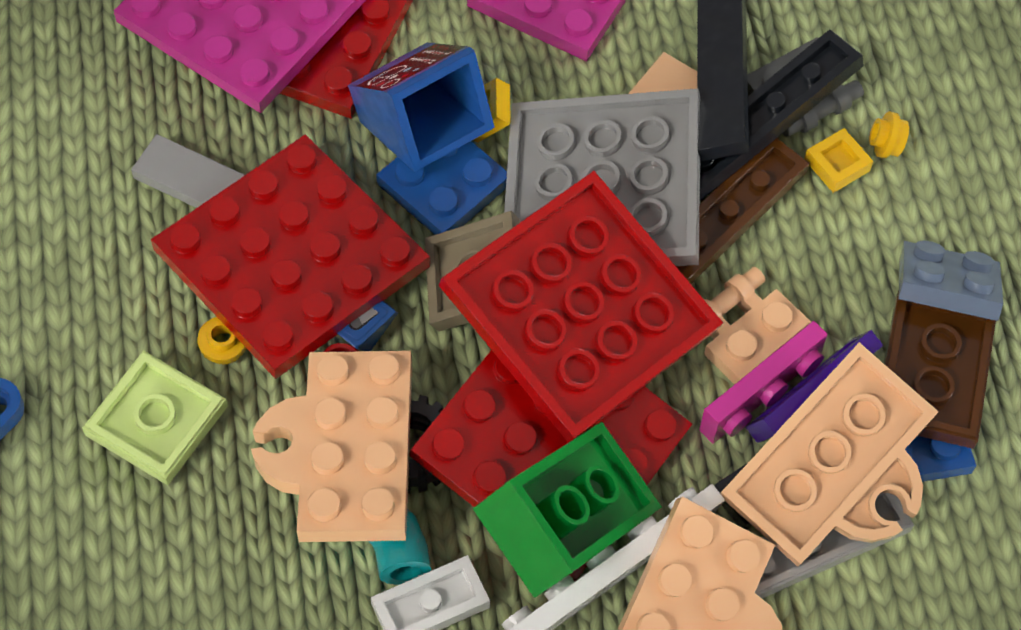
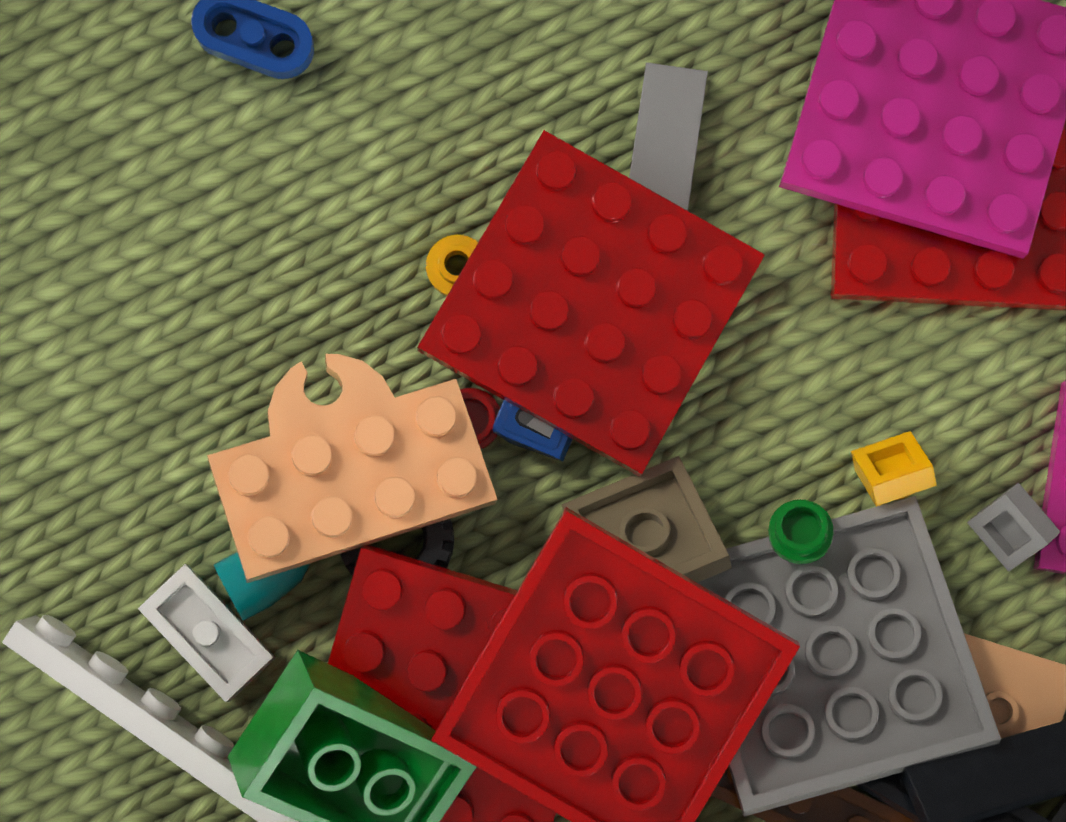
camera: 75 degrees right, 20 degrees up
(155, 417) = (329, 230): yellowish green plate -> none
(424, 103) = (856, 385): blue slope -> none
(446, 190) = (777, 443): blue plate -> none
(509, 171) = (800, 531): none -> green plate
(555, 54) = (1013, 527): none -> light grey plate

